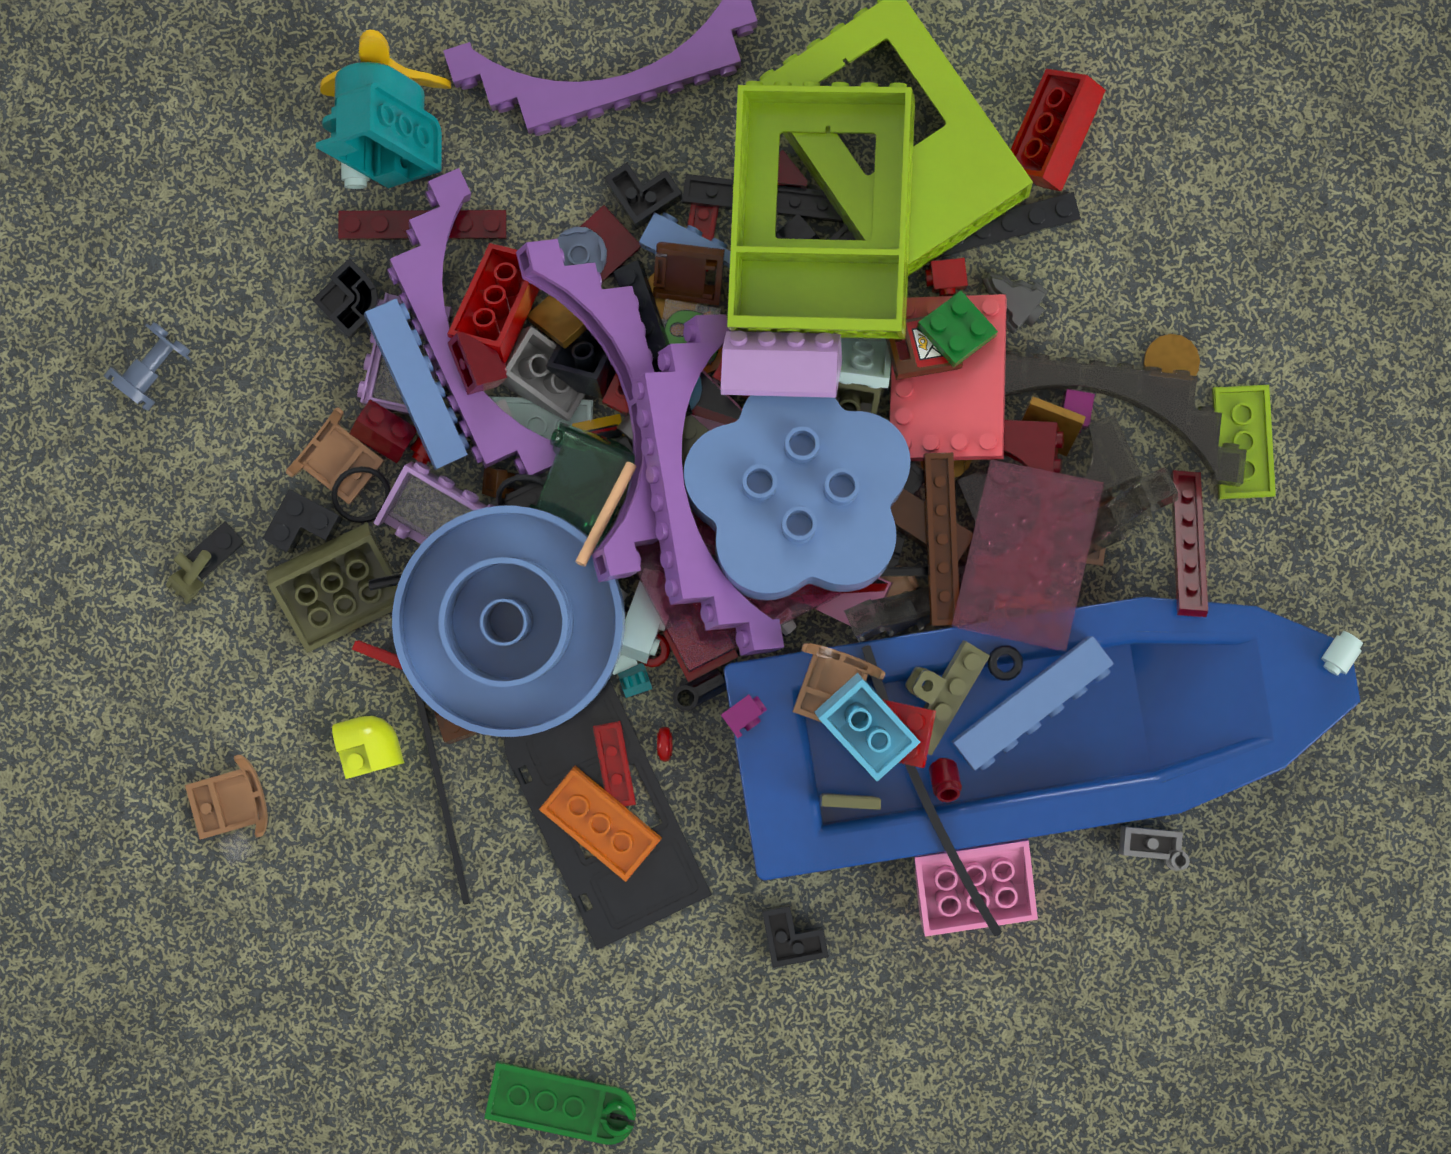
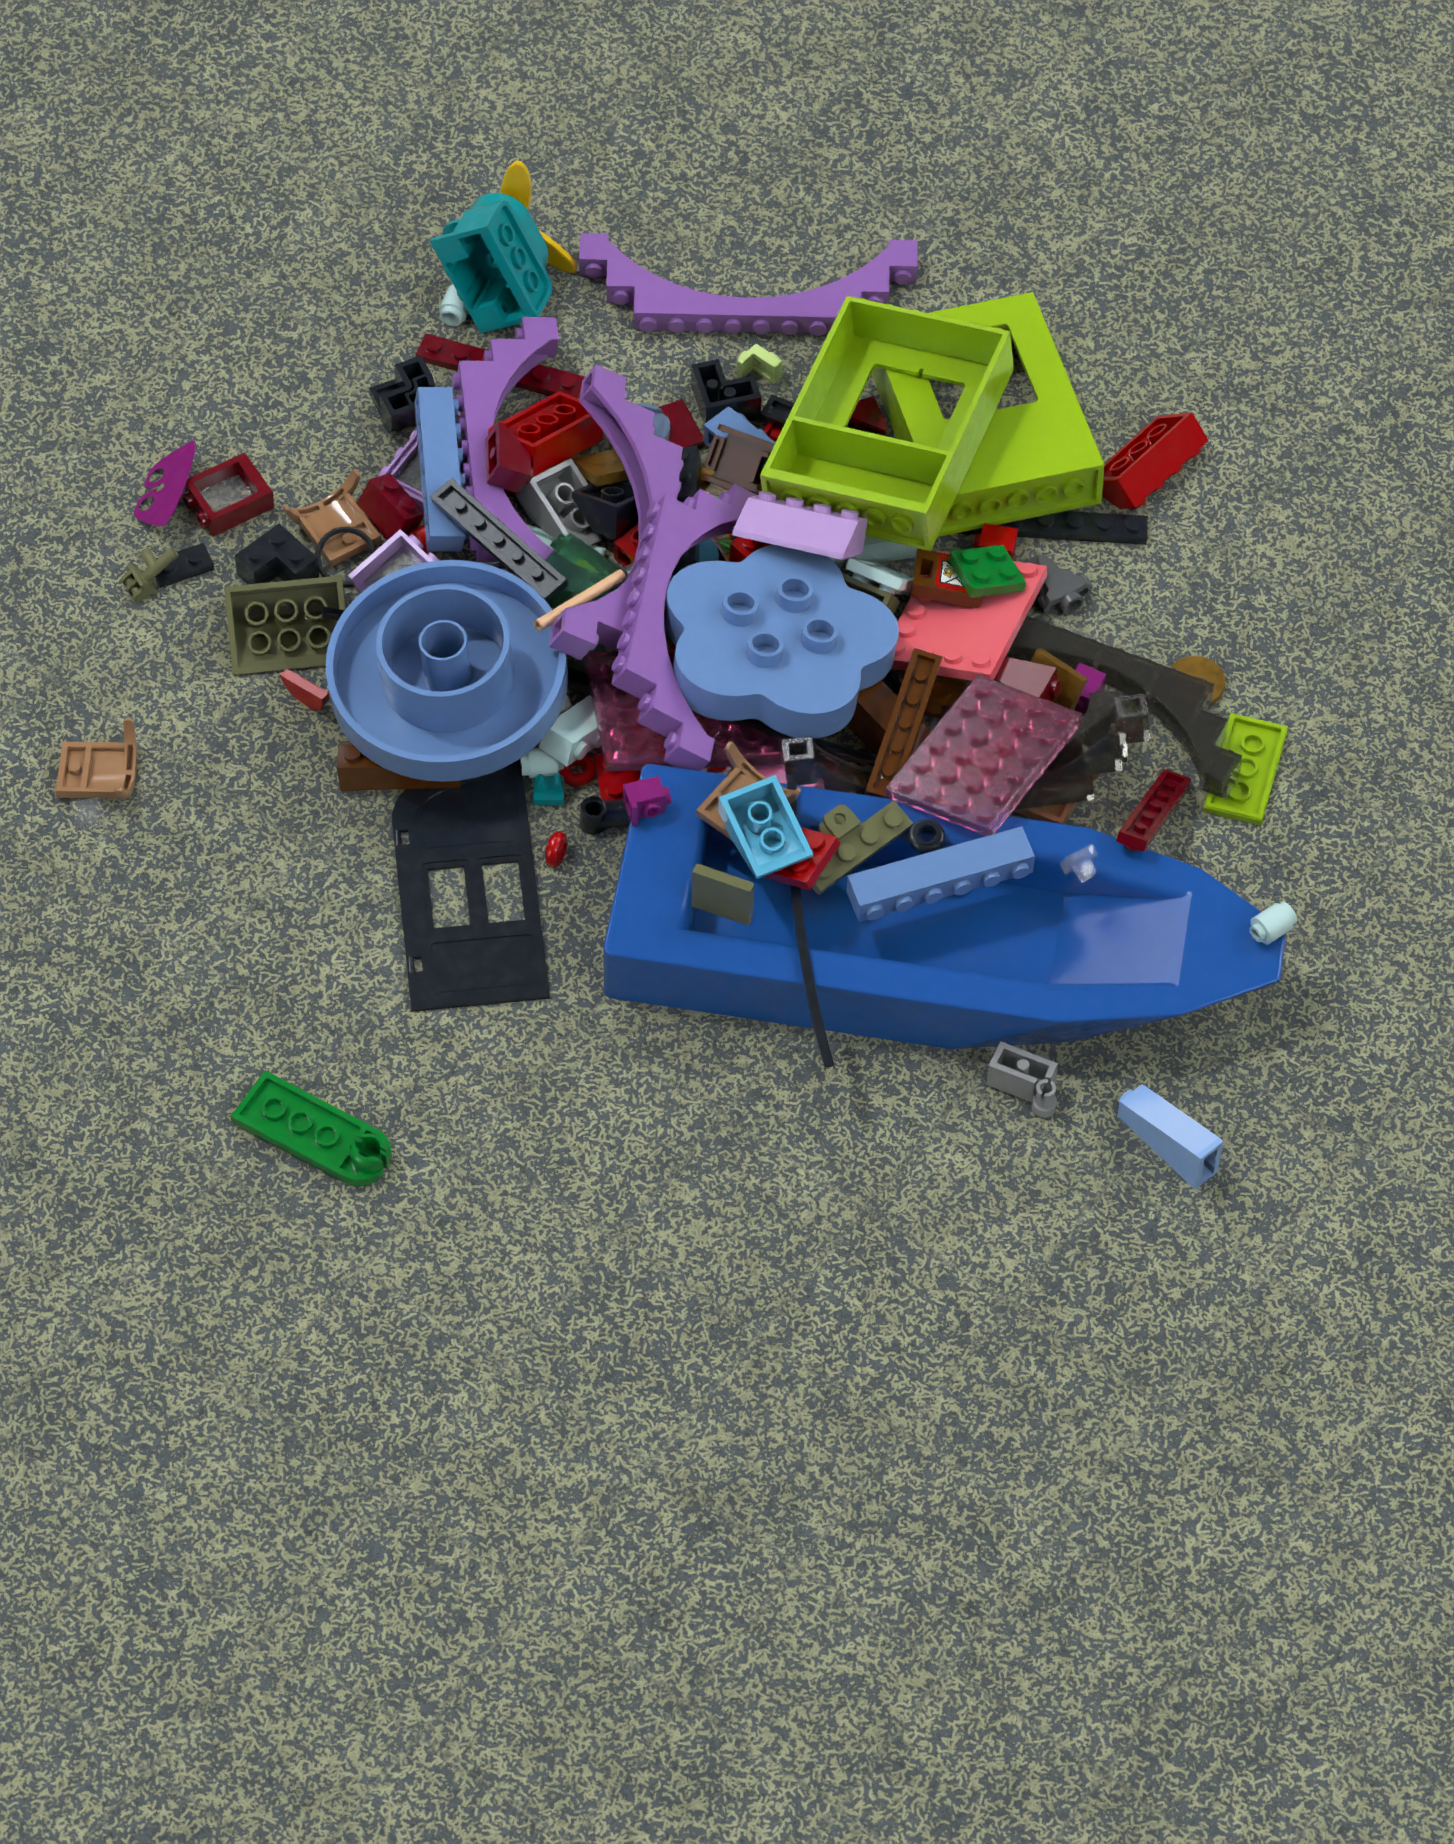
camera: 15 degrees right, 30 degrees down
(142, 373) = (180, 397): sand blue piece -> none
(174, 499) = (176, 472): none -> magenta piece
(225, 464) = (228, 494): none -> dark red window
(366, 745) = (258, 758): neon yellow brick -> none
(443, 800) = (303, 887): black piece -> none
(504, 462) = (499, 540): none -> plate
(600, 823) = (462, 893): orange tile -> none
(614, 762) = (497, 852): red tile -> none
(668, 138) = (761, 361): none -> yellowish green bracket
(788, 945) = (612, 1052): black brick -> none
(945, 779) = (827, 924): dark red brick -> none
(1000, 875) = (856, 1038): bright pink slope -> none
(1152, 646) = (1081, 863): none -> clear tile
(1295, 858) = (1172, 1135): none -> light blue slope

